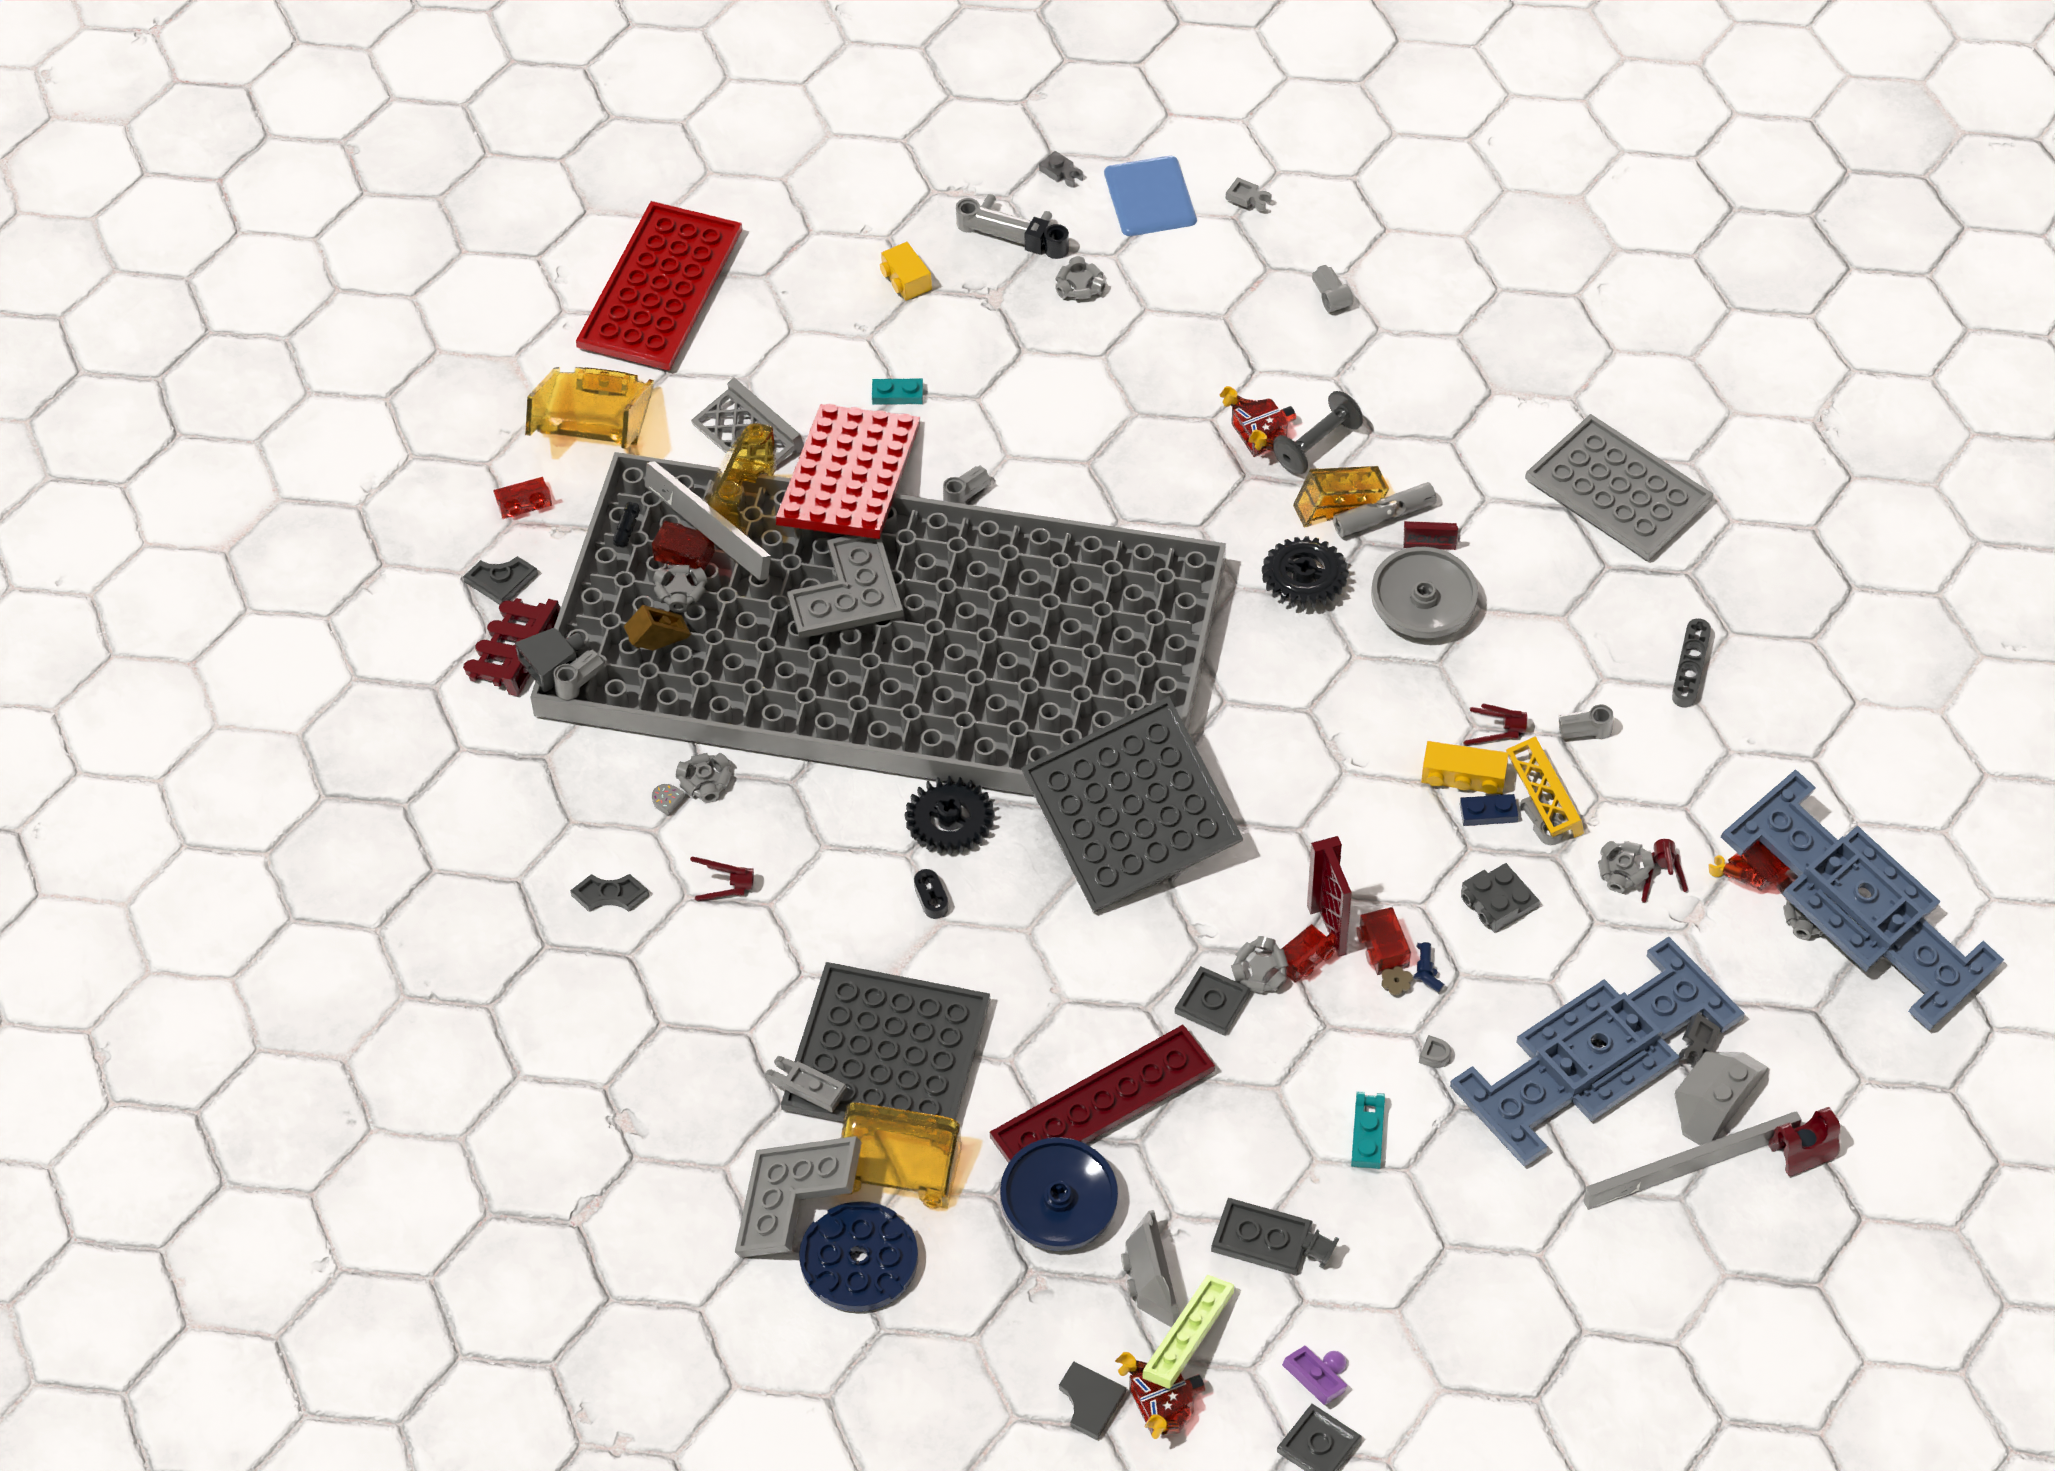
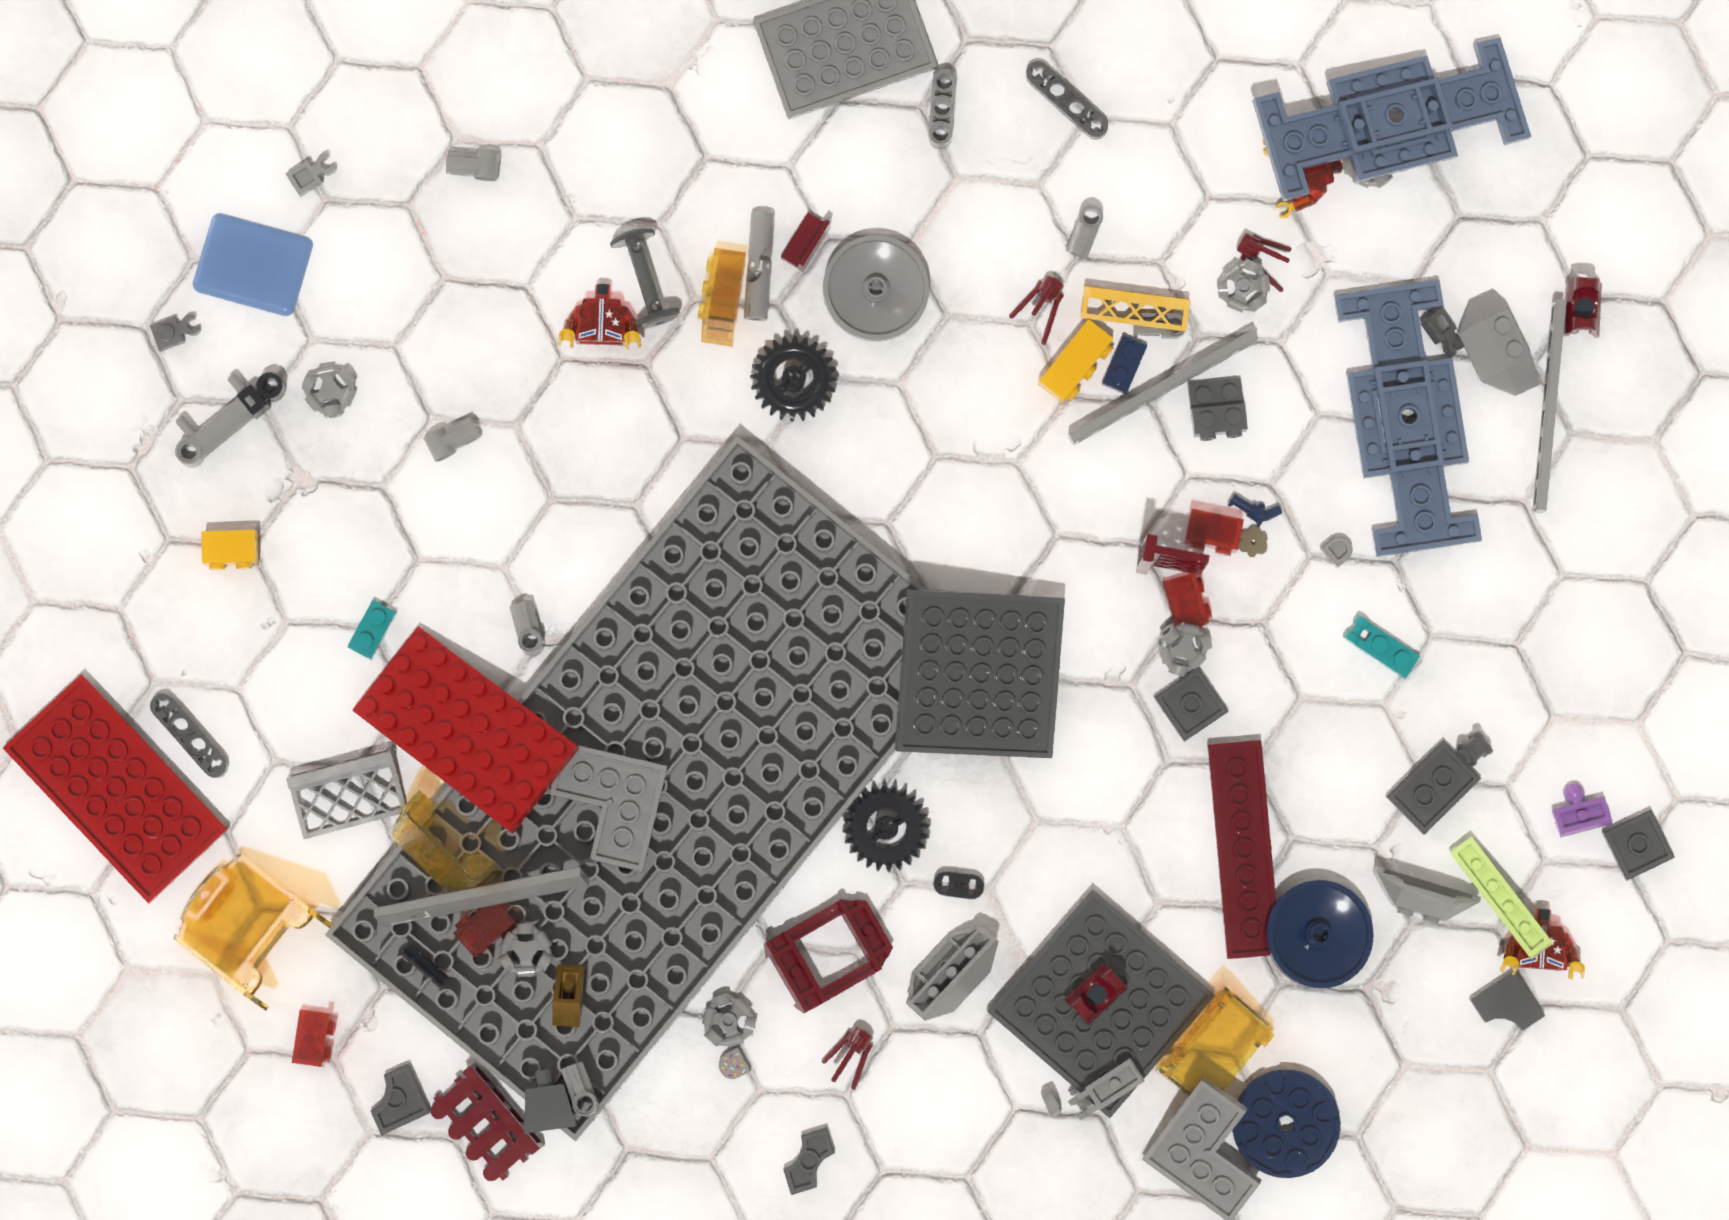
camera: 65 degrees left, 30 degrees up
(729, 312) = (186, 738): none -> dark grey beam
(768, 1052) = (1051, 1103): none -> light grey tile
(779, 793) = (796, 972): none -> dark red wedge
(842, 919) = (951, 972): none -> light grey wedge
(888, 1031) = (1096, 993): none -> dark red piece
(1087, 367) = (444, 442): none -> light grey piece
(1489, 843) = (1163, 387): none -> light grey tile
(1614, 574) = (946, 97): none -> light grey beam

